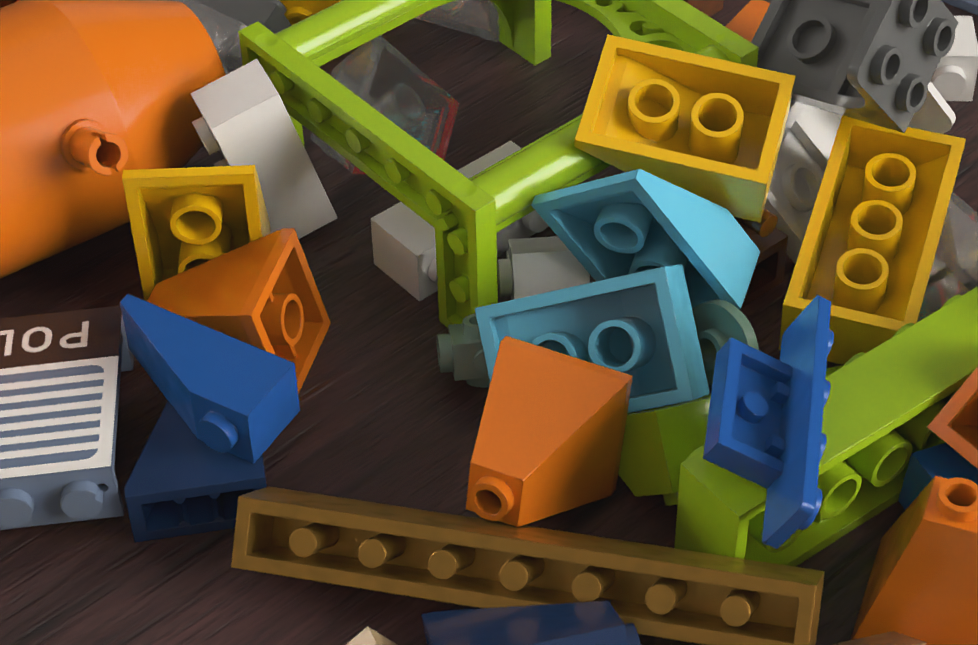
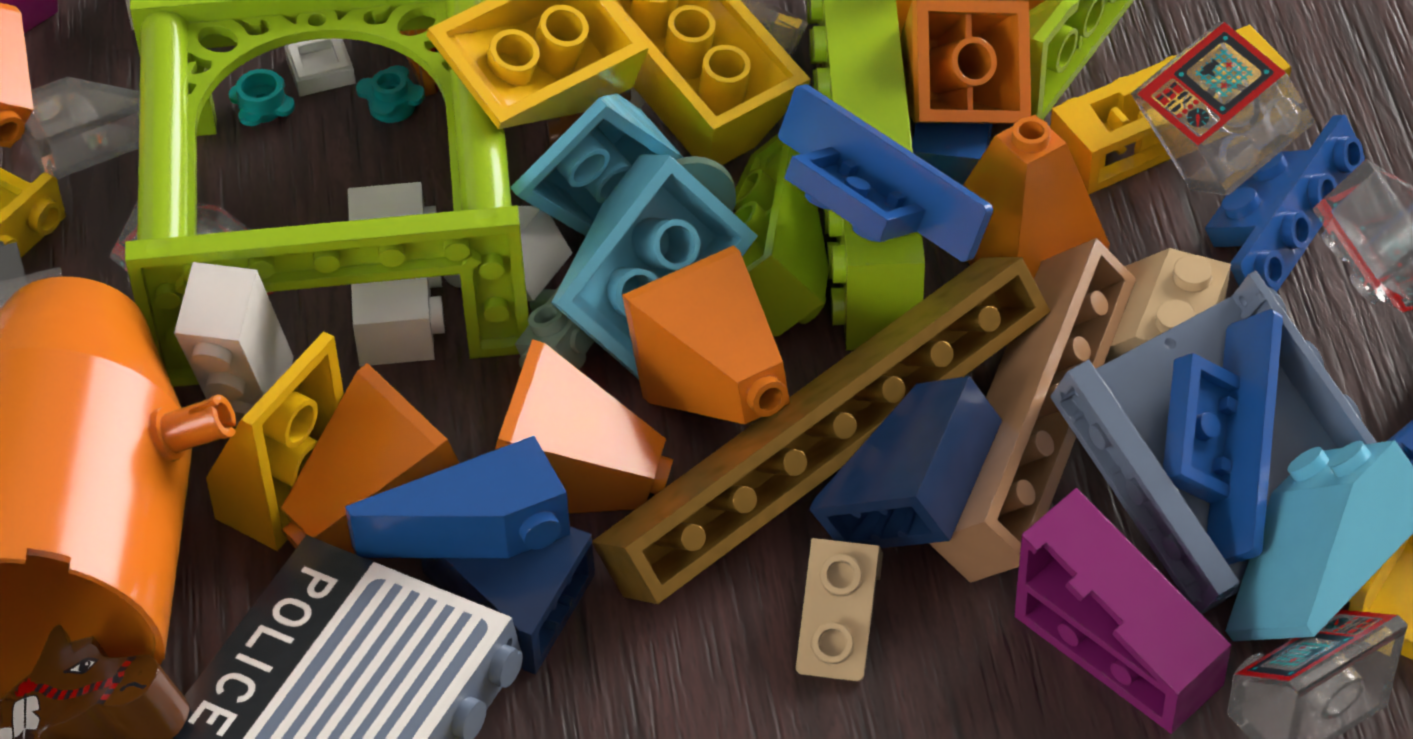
camera: 55 degrees left, 5 degrees up
(360, 407) = (591, 439): none -> slope
(579, 59) = (260, 97): none -> teal plate

